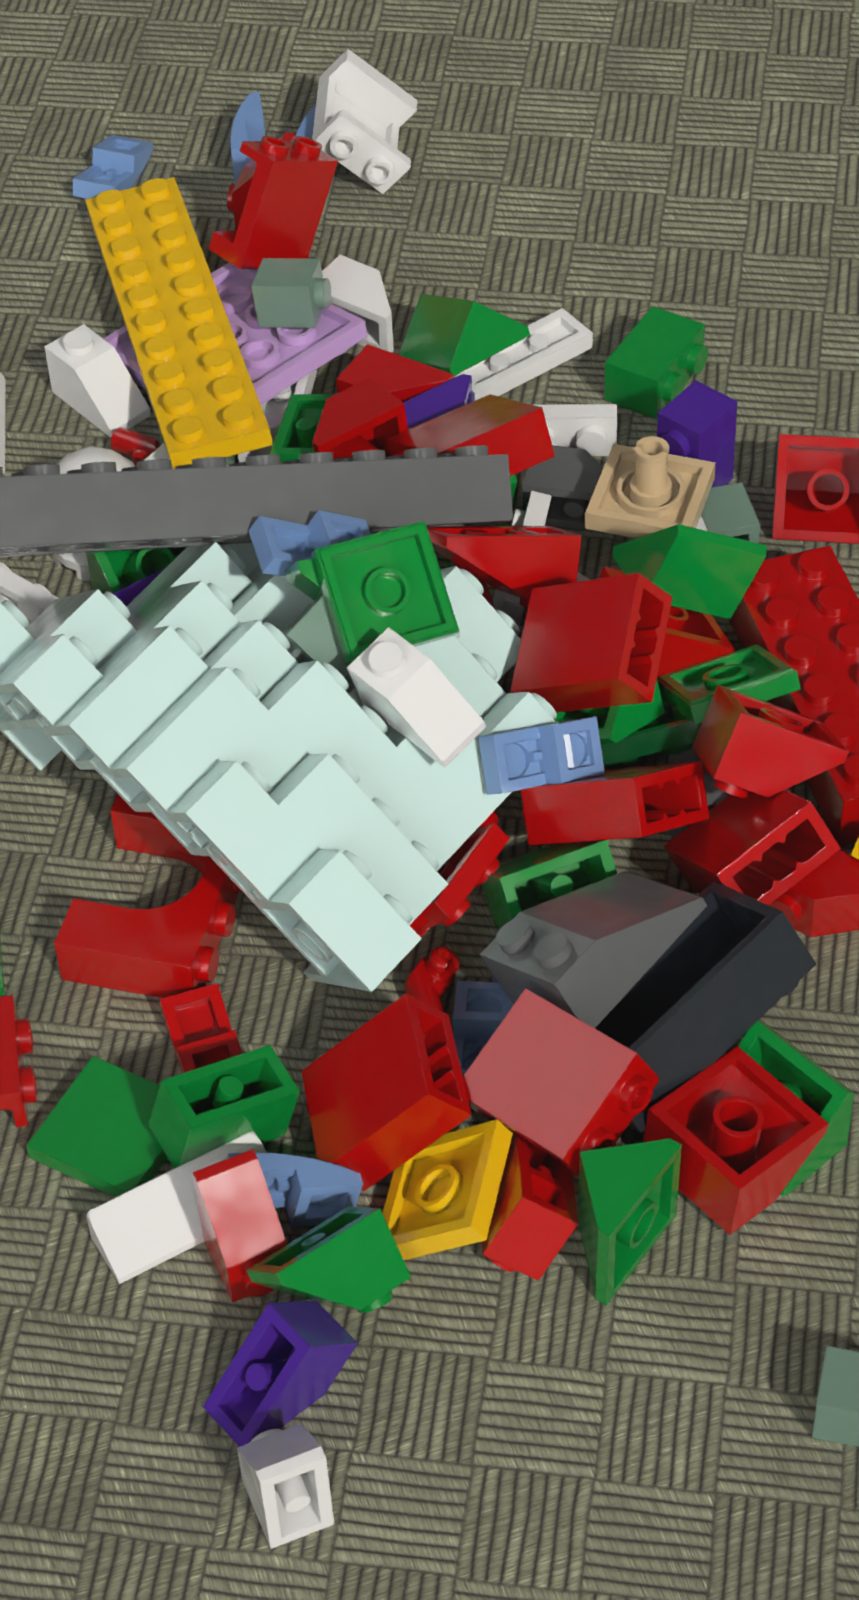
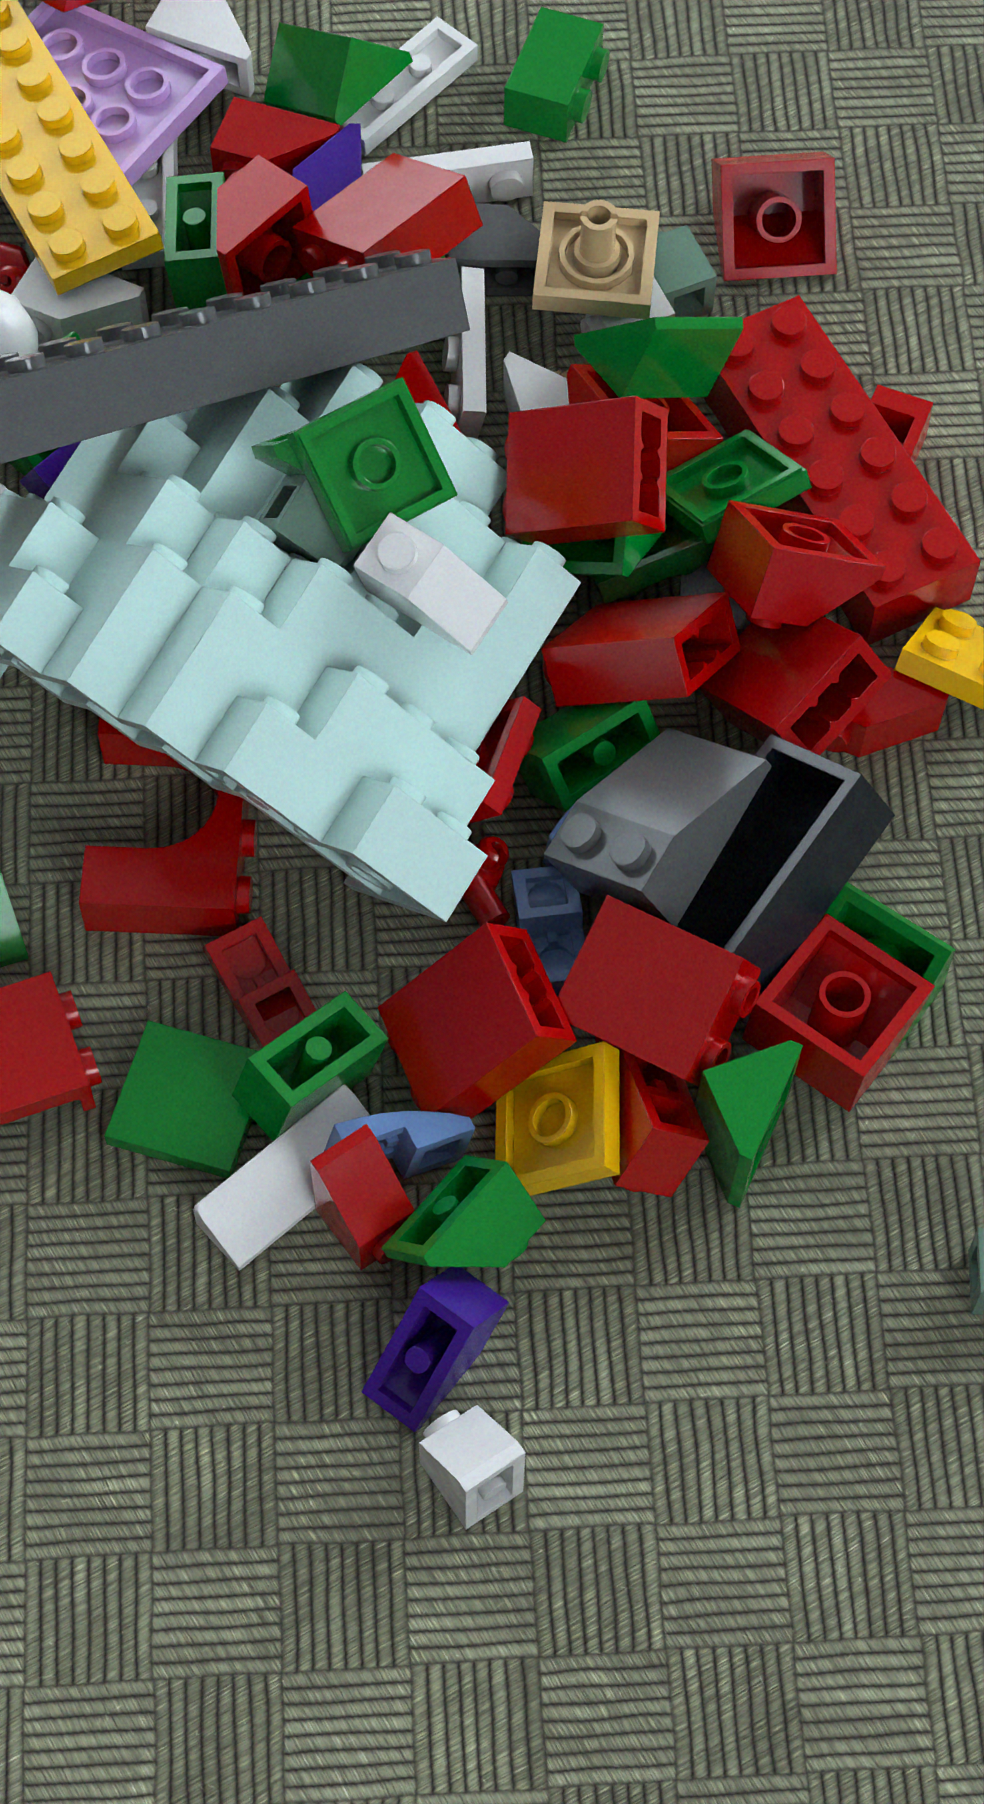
camera: 15 degrees left, 15 degrees up
(285, 542) = (264, 411): medium blue slope -> none
(290, 292) = (134, 44): sand green brick -> none
(511, 556) = (486, 367): red slope -> none
(541, 755) = (562, 613): medium blue slope -> none
(701, 427) = (630, 166): dark purple brick -> none

